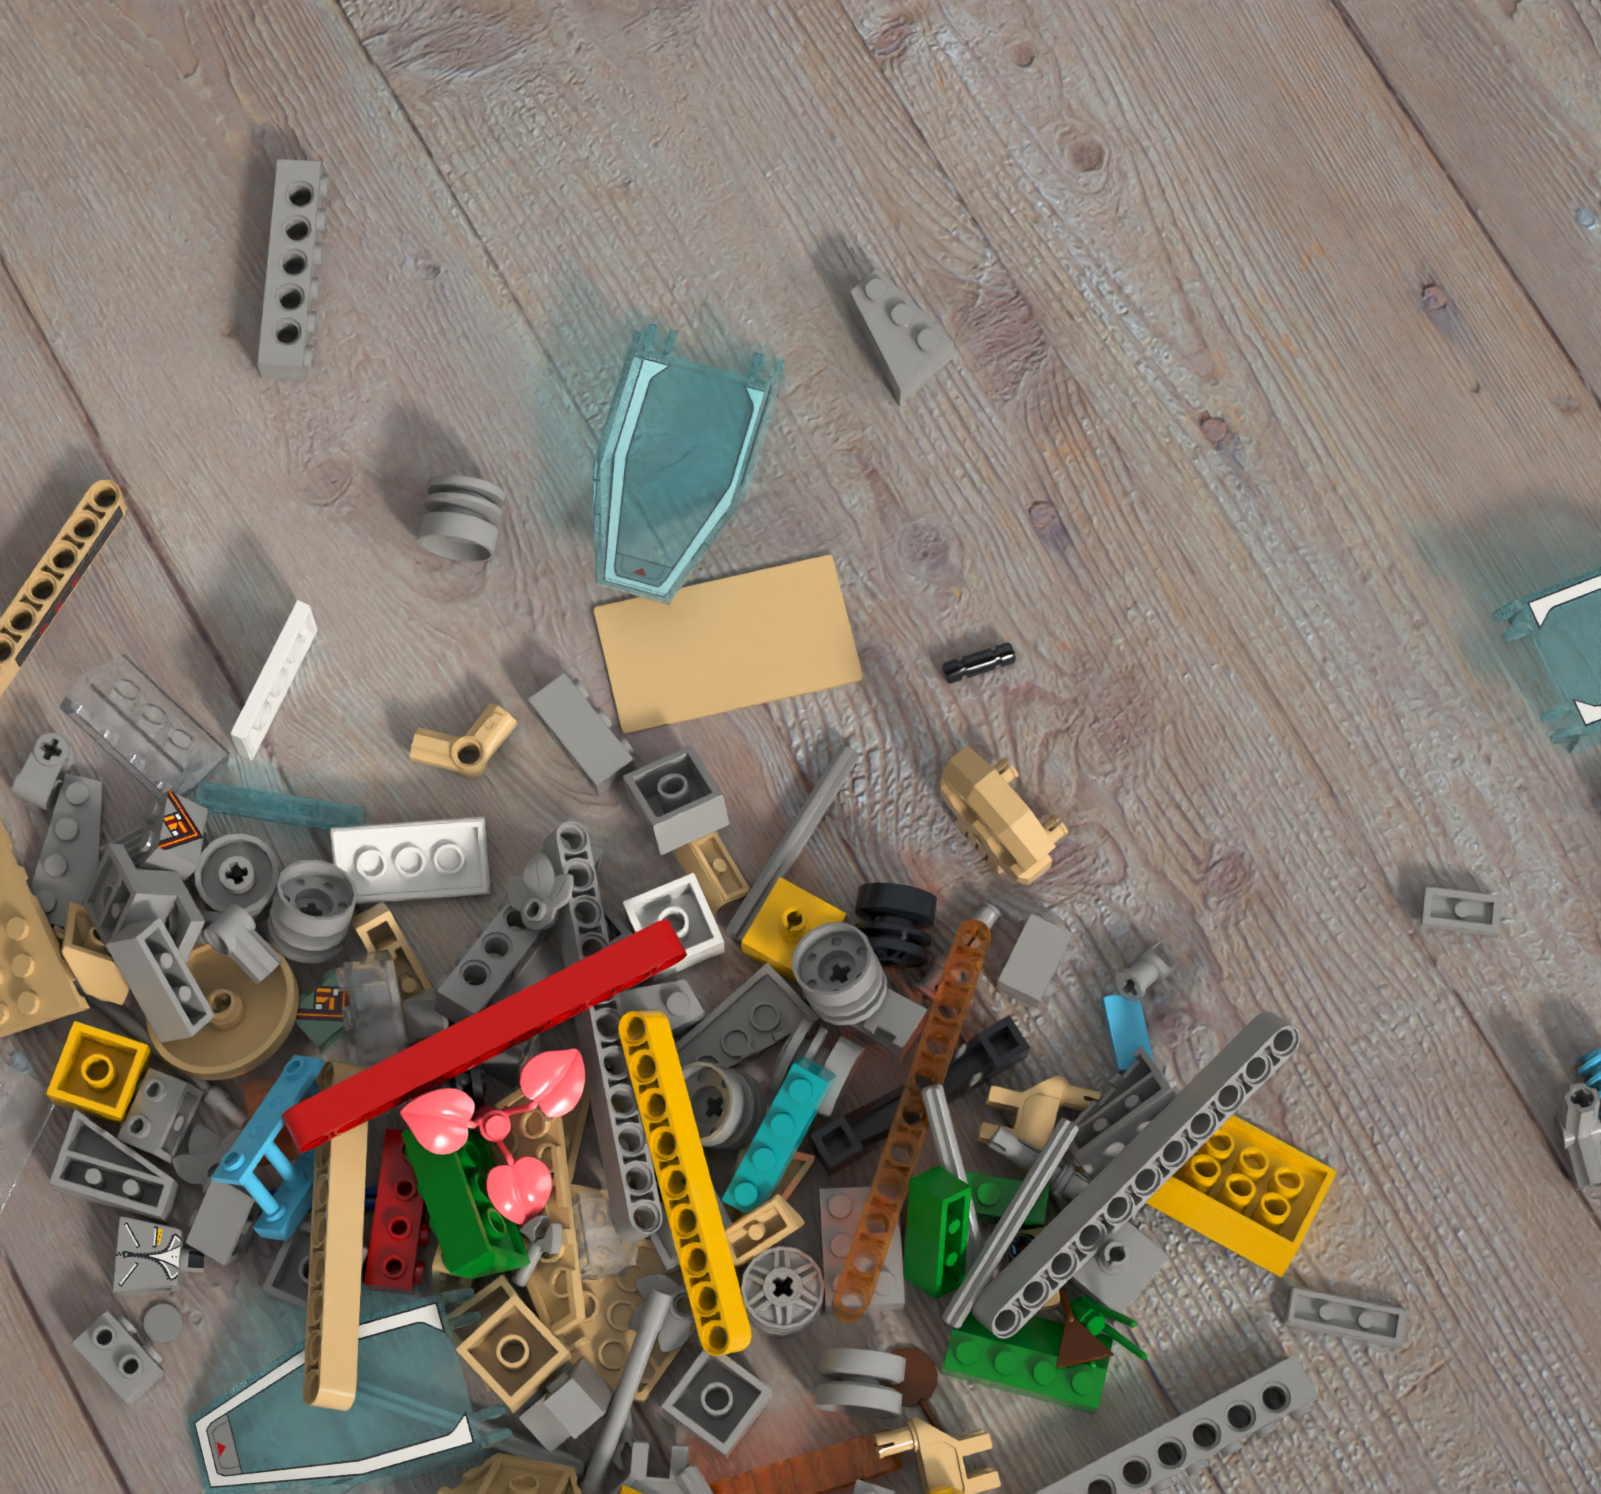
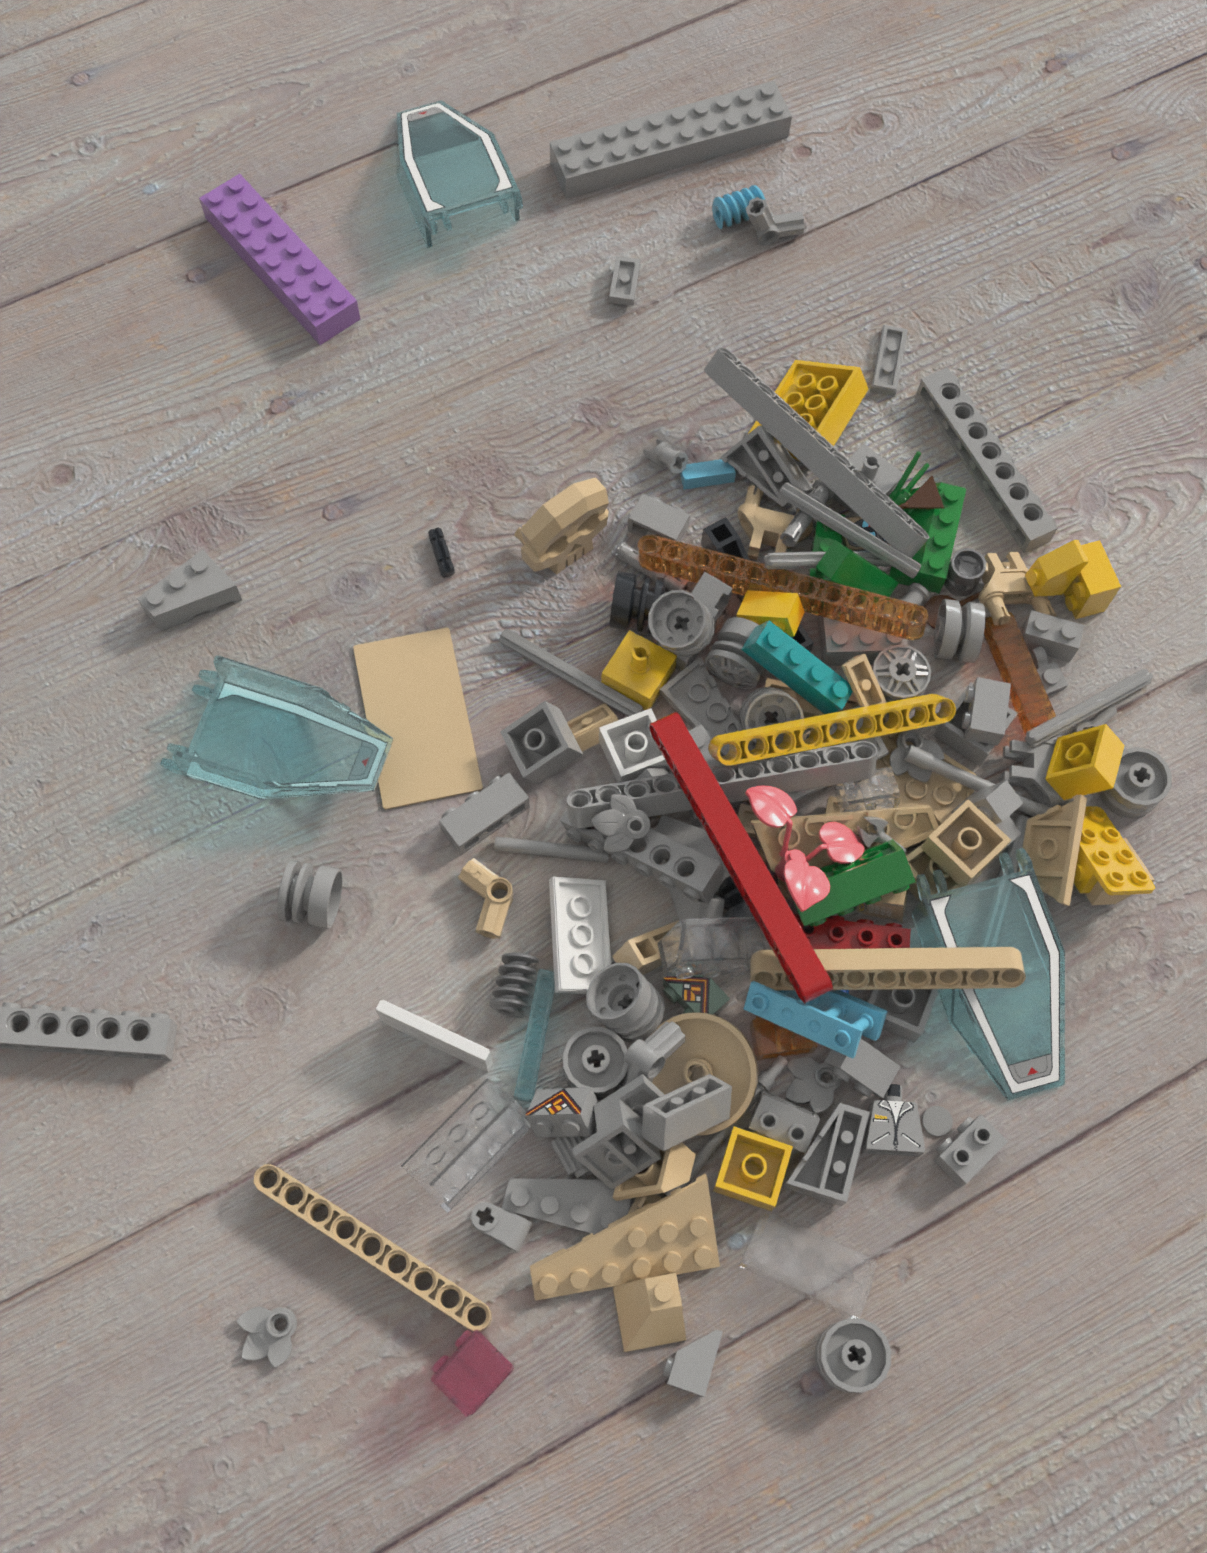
camera: 90 degrees left, 5 degrees down
(346, 778) = (512, 982): none -> flat silver piece
(536, 805) = (549, 849): none -> light grey piece
(718, 1400) = (986, 711): none -> light grey brick
(869, 1104) = (778, 607): none -> yellow brick
(919, 1327) = (916, 594): none -> light grey bush
(964, 1403) = (965, 572): none -> flat silver wheel
(1459, 407) = (280, 259): none -> medium lavender brick

